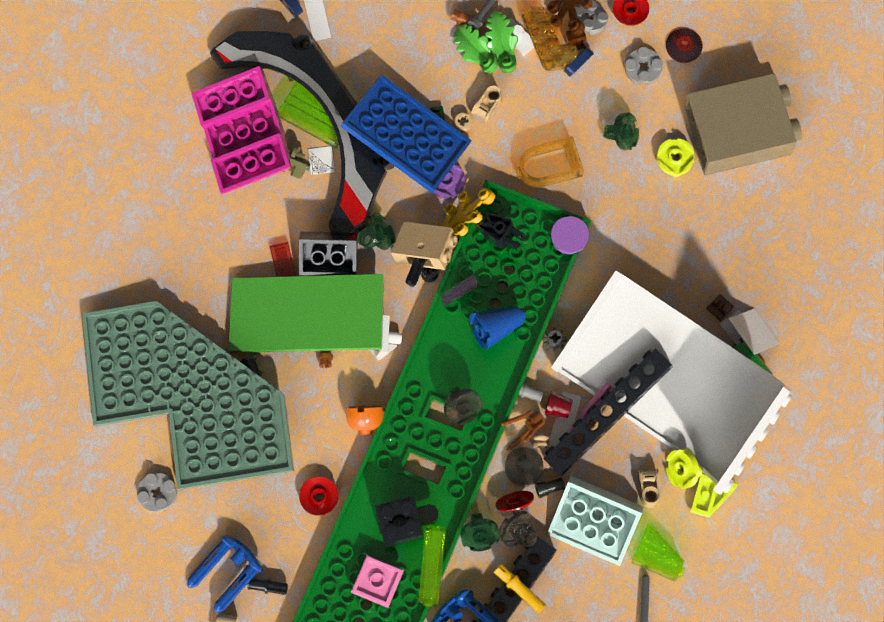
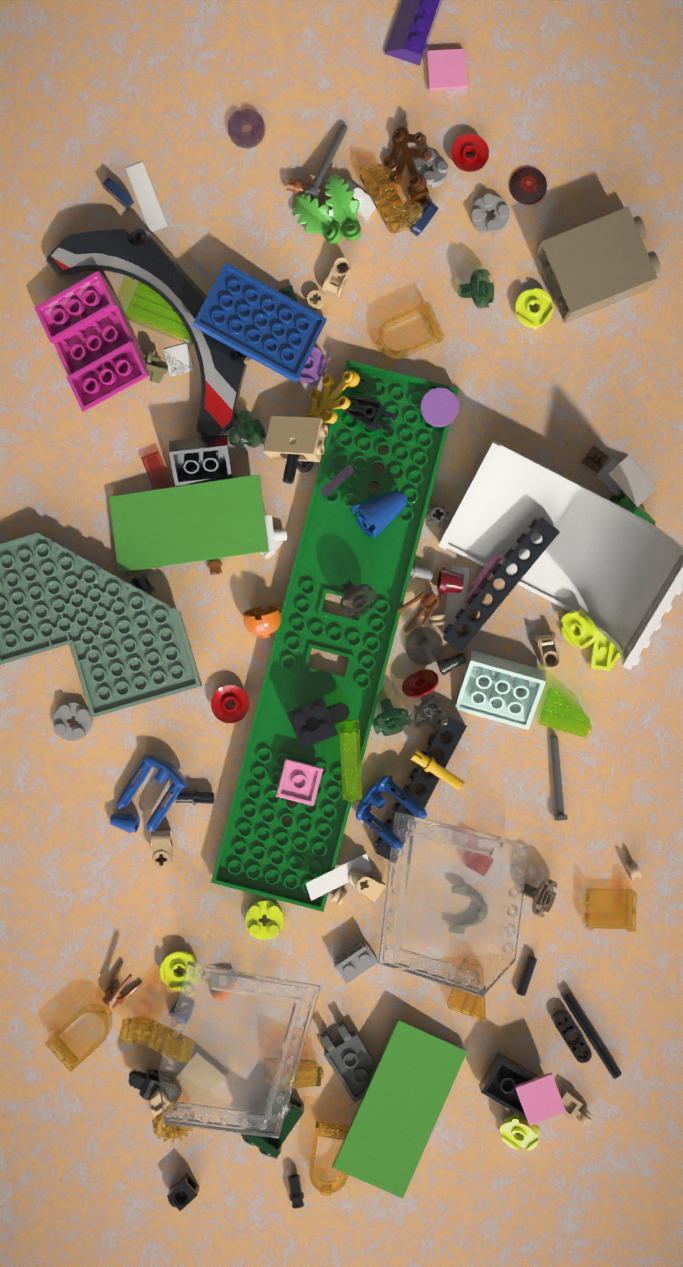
camera: 10 degrees left, 15 degrees up
(192, 601) = (126, 822): none -> blue cone

